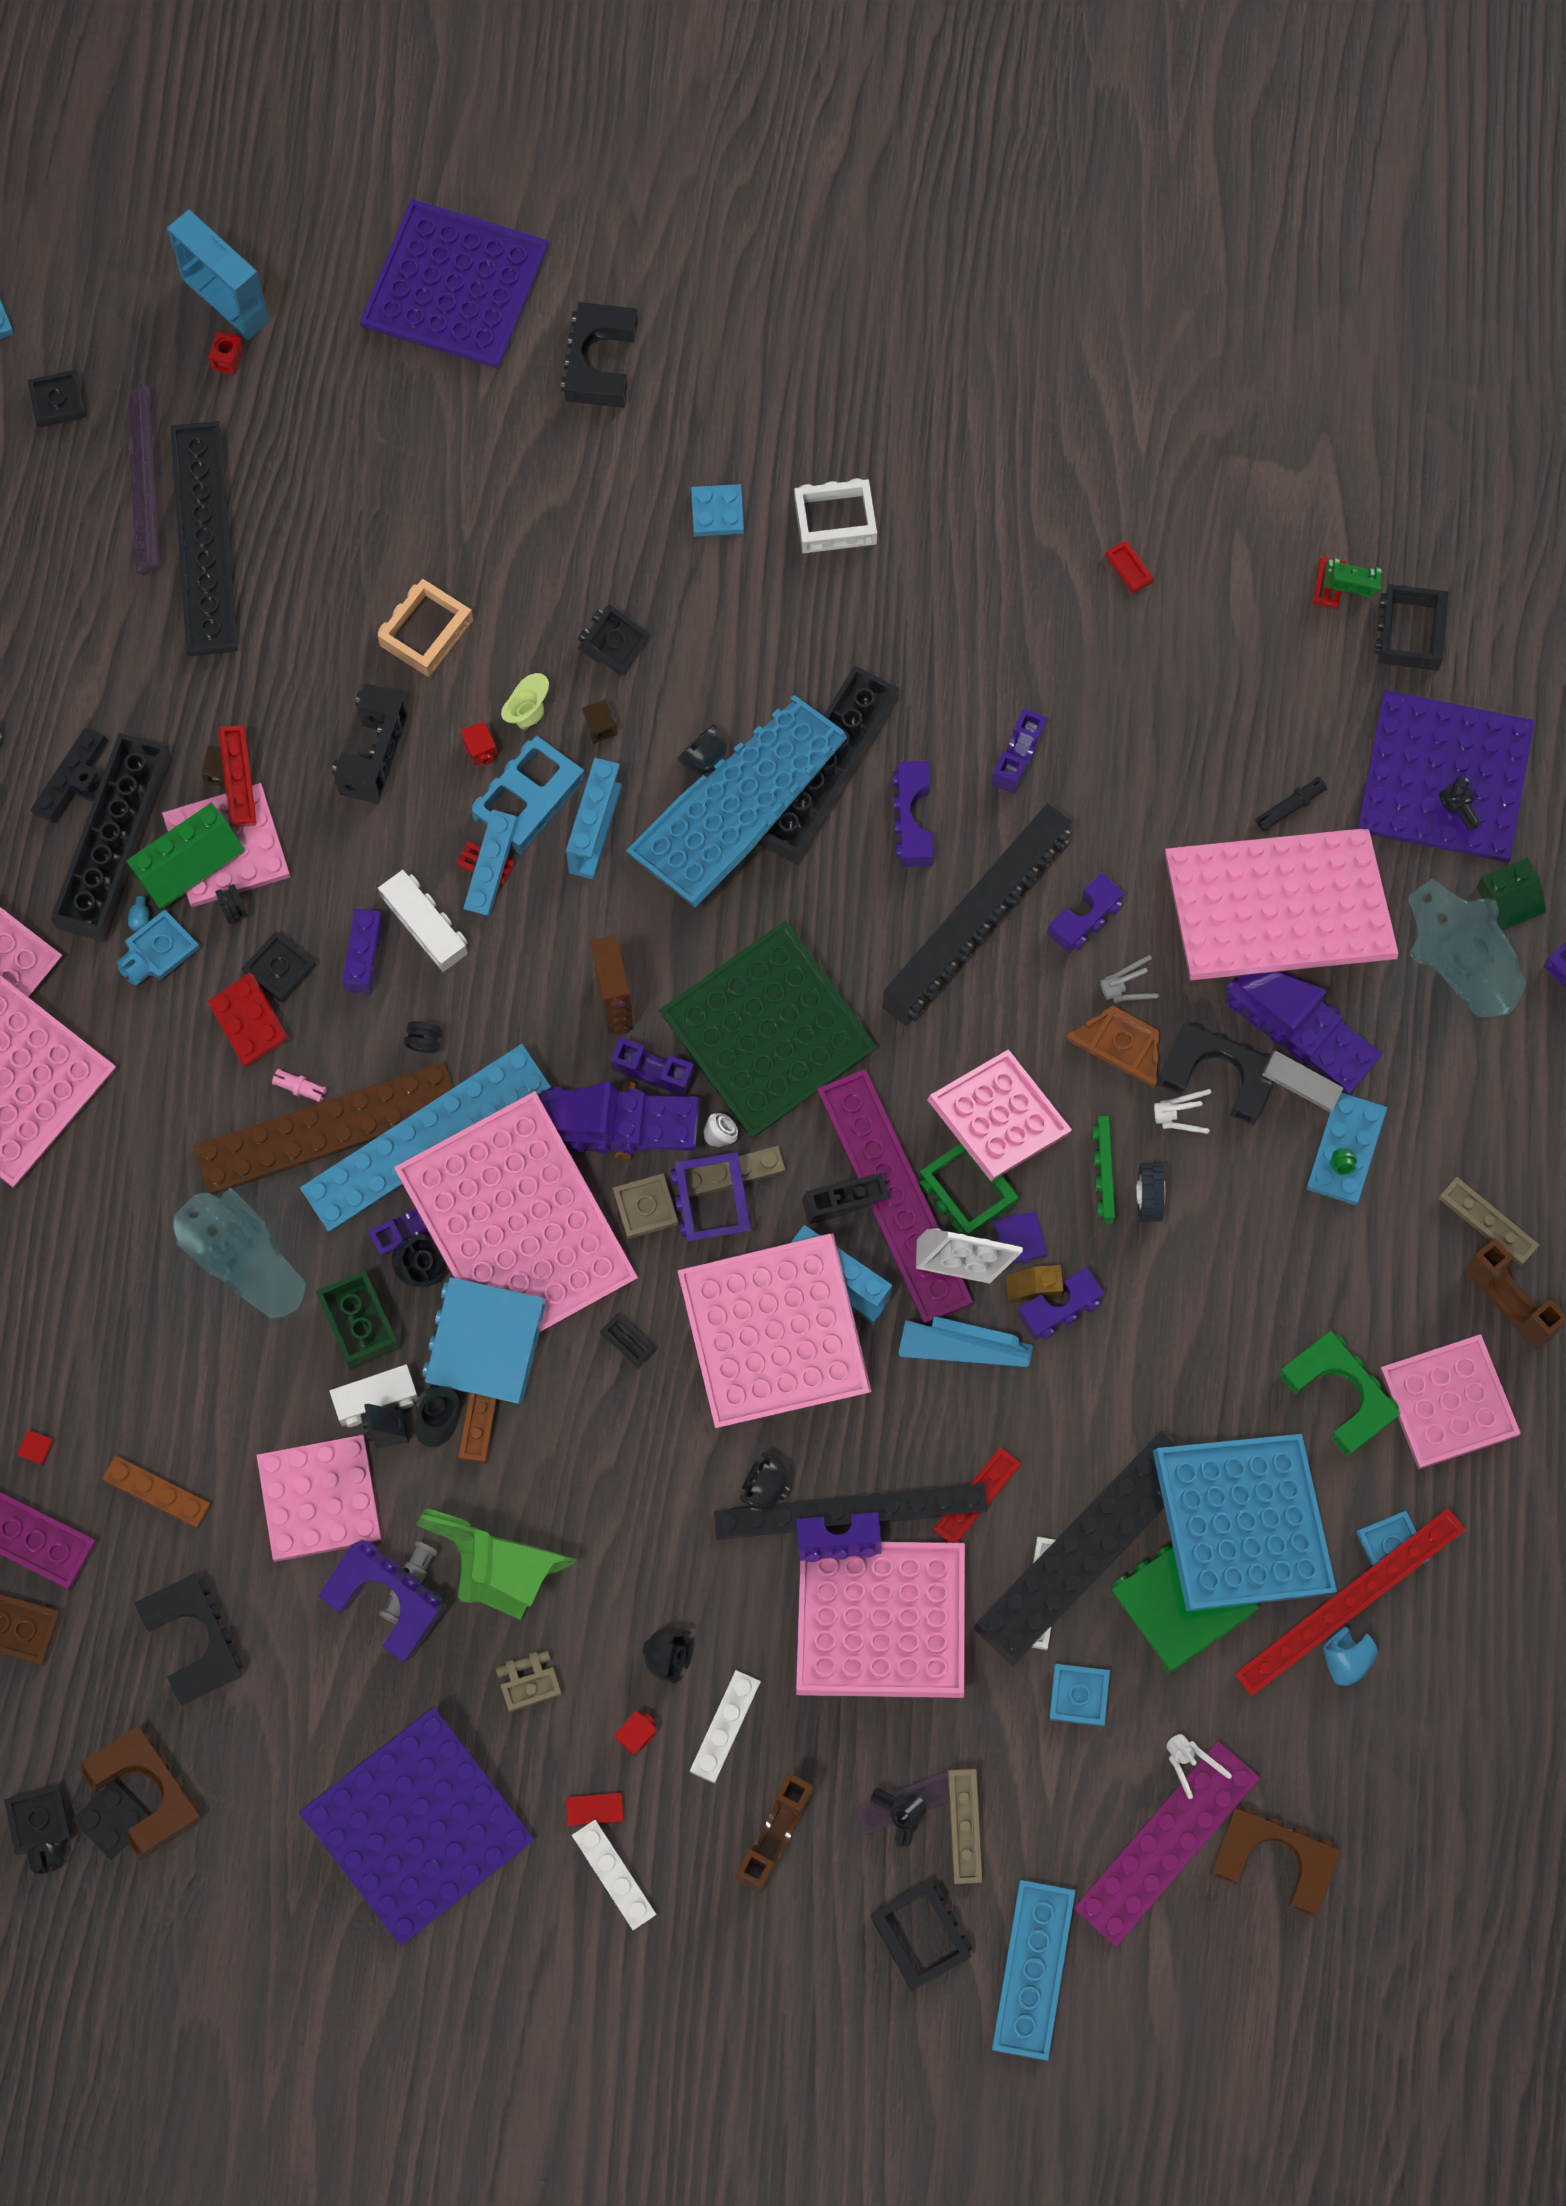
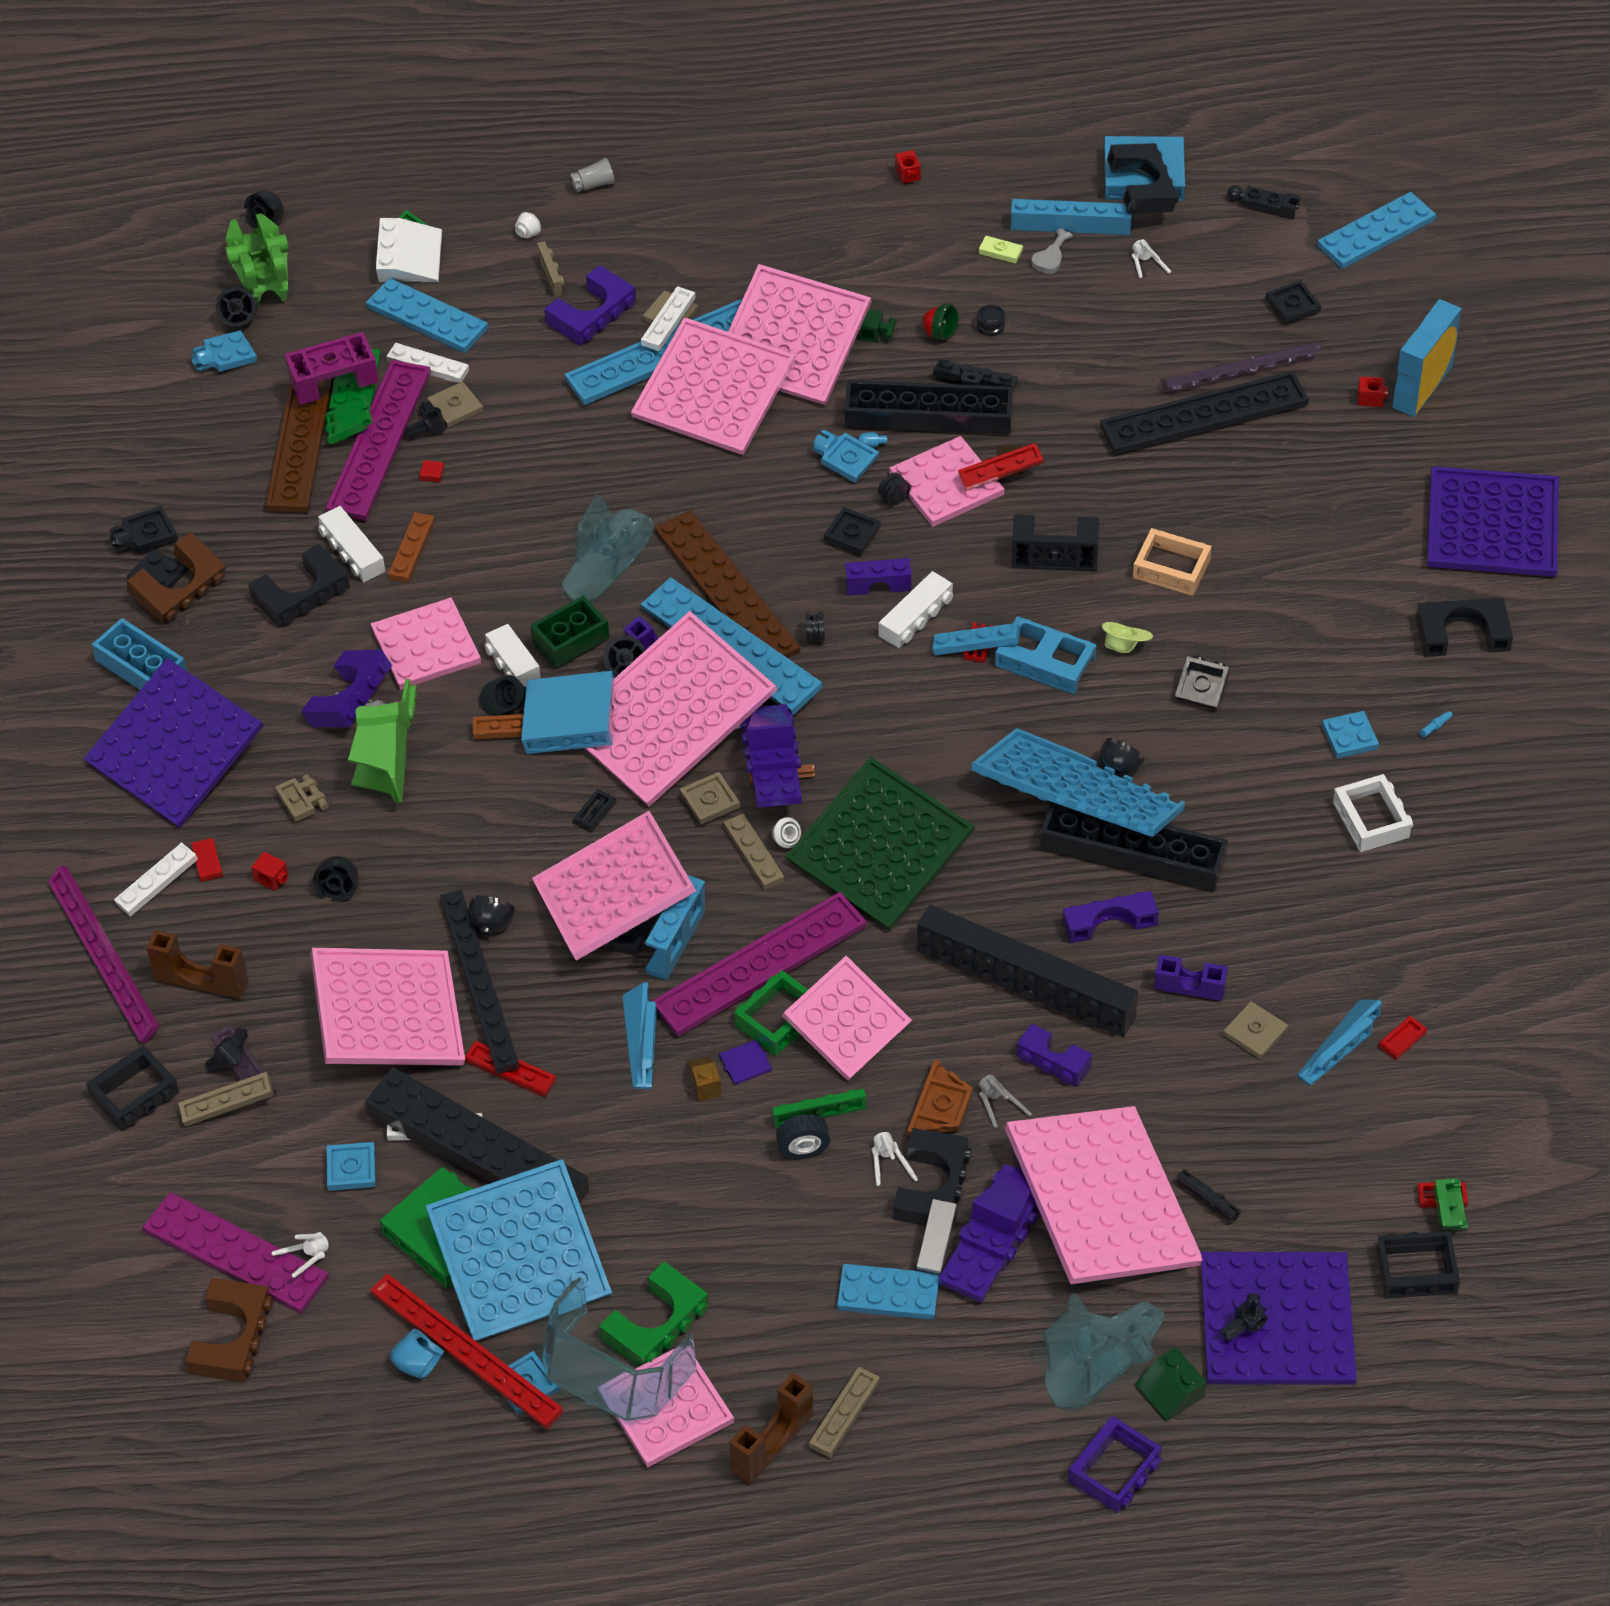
camera: 80 degrees right, 20 degrees down
(135, 1565) = (351, 544): none -> white brick
(185, 856) = (923, 449): green slope -> none
(248, 1020) = (801, 520): red plate -> none
(262, 1856) = (132, 653): none -> dark azure brick
(299, 1085) = (756, 564): bright pink pin -> none
(384, 1425) = (484, 655): black slope -> none
(479, 744) = (1080, 615): red brick -> none
(593, 819) = (1032, 700): dark azure window -> none
(600, 721) = (1126, 688): dark brown panel -> none
(612, 985) = (872, 709): reddish brown arch -> none
(635, 1062) = (829, 774): dark purple arch -> none
(683, 1203) = (732, 850): dark purple window -> none
(712, 1952) = (103, 954): none -> magenta plate
(724, 421) = (1435, 724): none -> dark azure piece
(725, 1727) = (286, 931): white plate -> none
(844, 1198) = (745, 921): black slope -> none
(860, 1540) = (453, 983): dark purple arch -> none
(963, 1255) = (712, 1005): white slope -> none
(1033, 1970) = (115, 1171): dark azure plate -> none
(1043, 1319) = (701, 1109): dark purple arch -> none
(1090, 706) = (1255, 1030): none -> dark tan plate
(1120, 624) = (1345, 1038): none -> dark azure wedge
(1343, 1161) = (868, 1278): green plate -> none
(1423, 1468) = (601, 1378): none -> clear light blue piece

